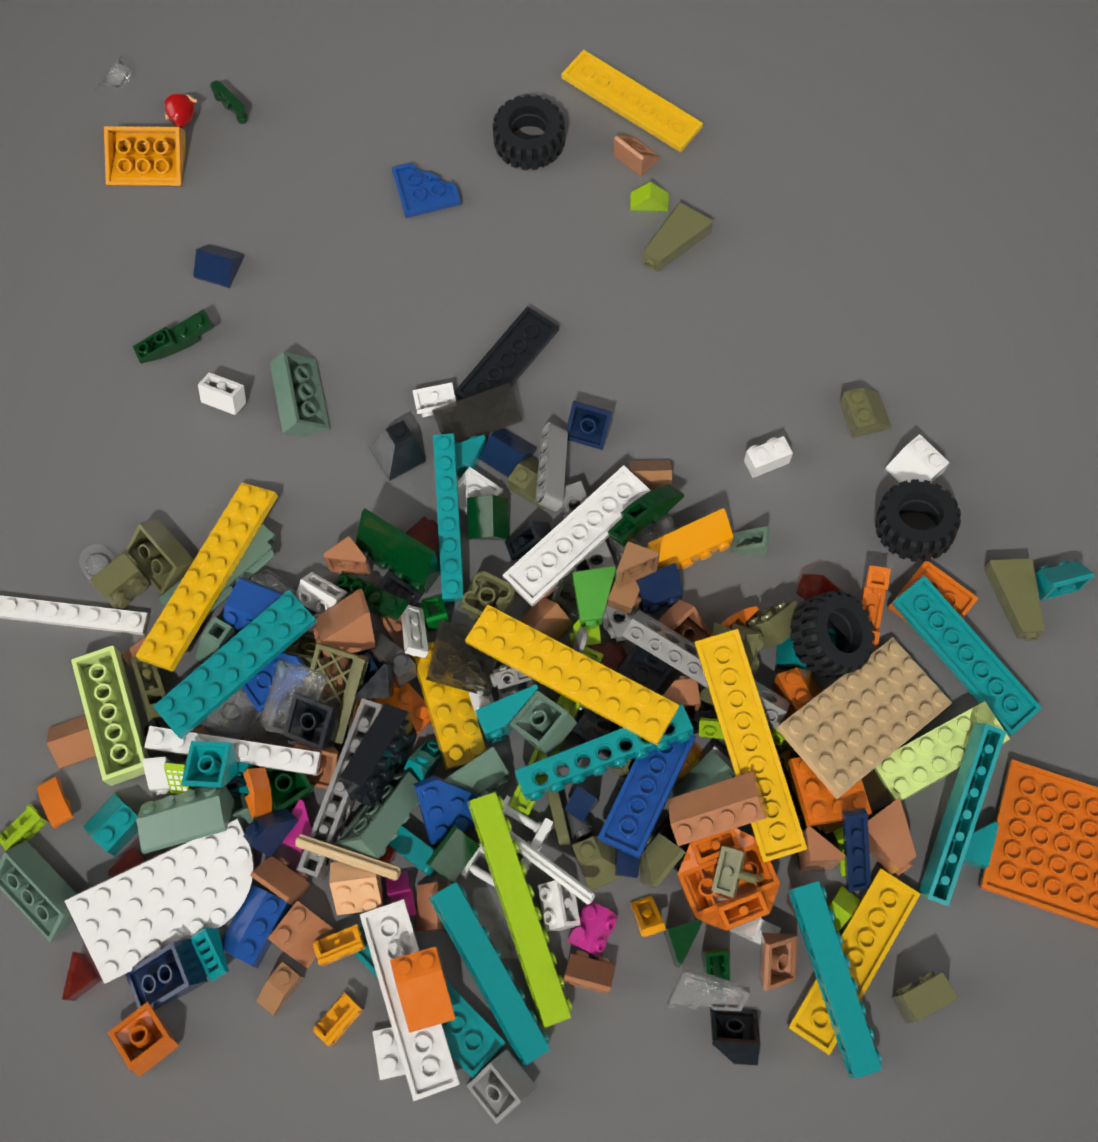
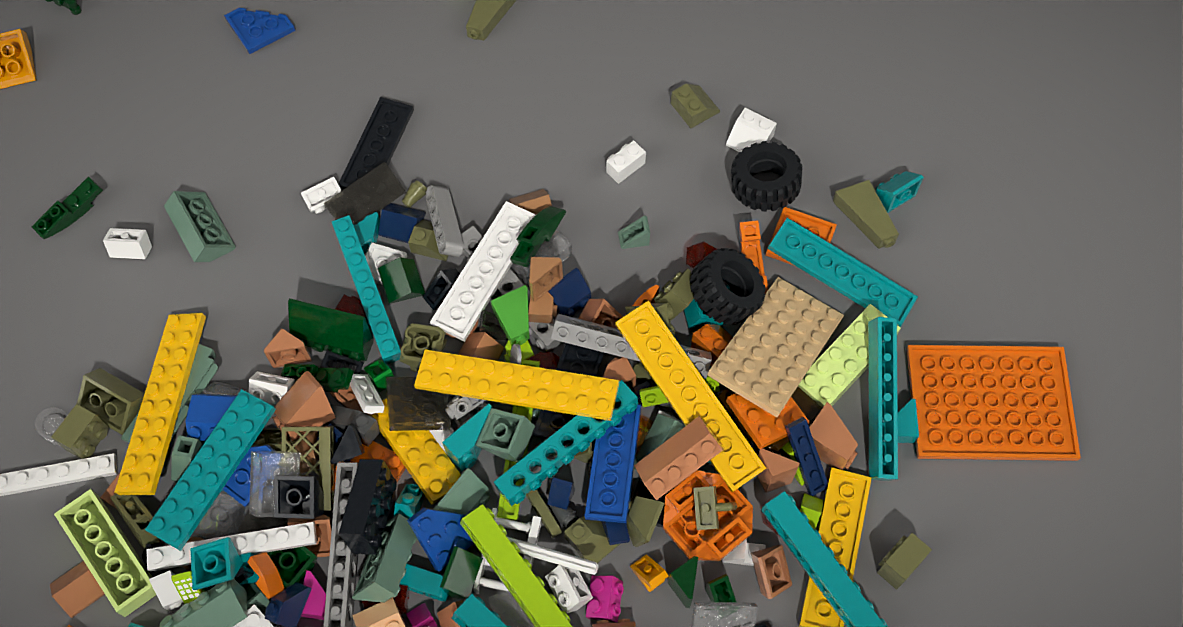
camera: 20 degrees left, 5 degrees down
(180, 109) = (15, 15): red hat -> none
(217, 265) = (89, 138): dark blue slope -> none
(348, 857) = (367, 603): tan axle -> none
(397, 450) = (302, 247): black slope -> none
(530, 425) = (414, 193): none -> olive cone
(589, 425) = (465, 178): dark blue slope -> none
(694, 541) = (588, 245): light orange slope -> none

